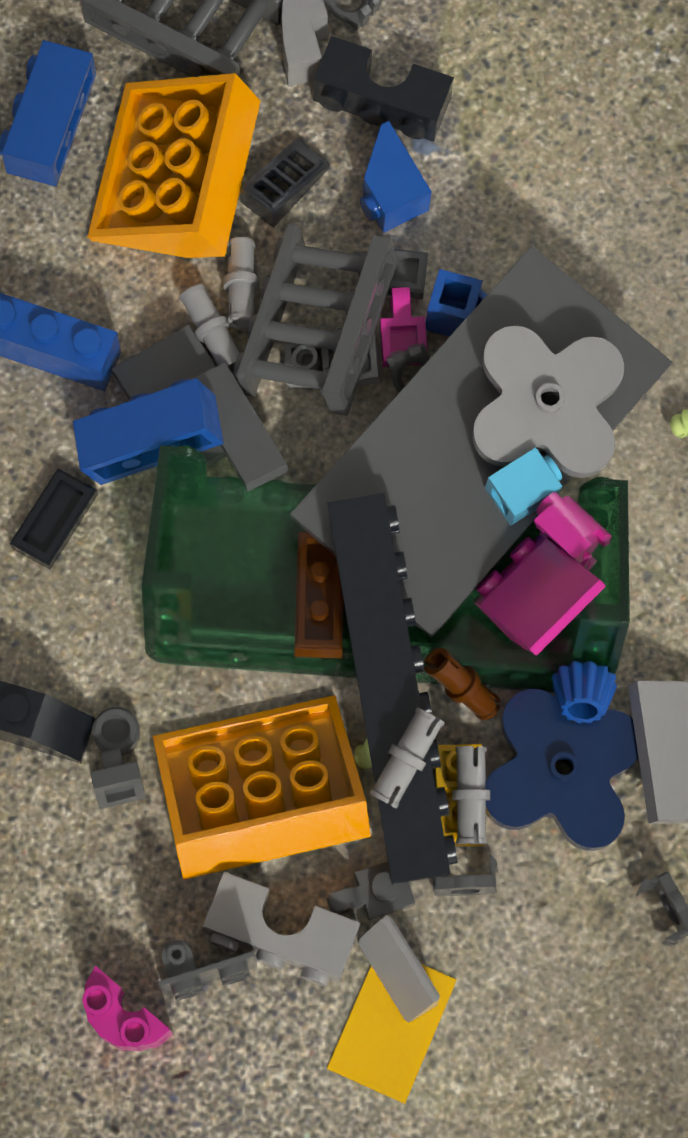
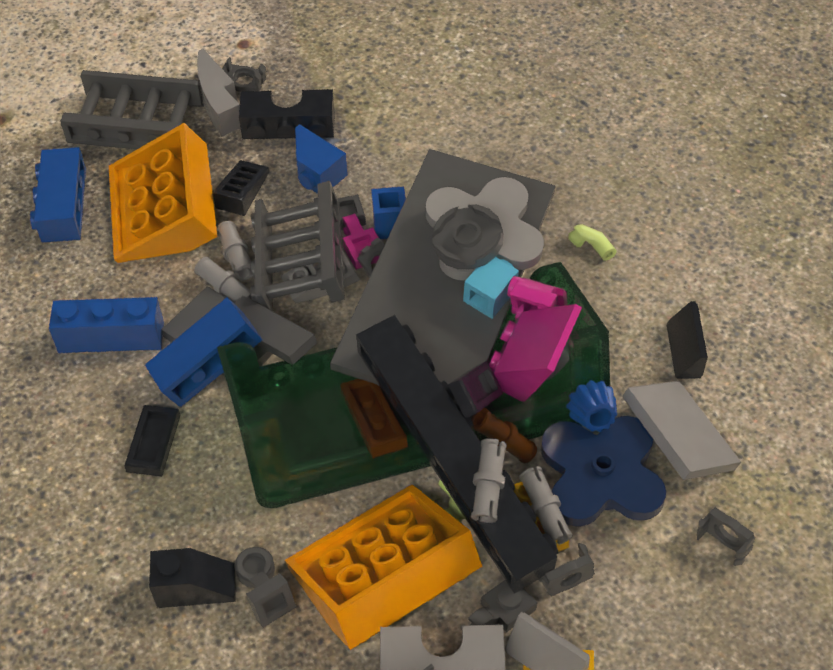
camera: 15 degrees left, 20 degrees down
(445, 624) = (475, 389): none -> black tile
(517, 416) = (467, 237): none -> dark grey tile

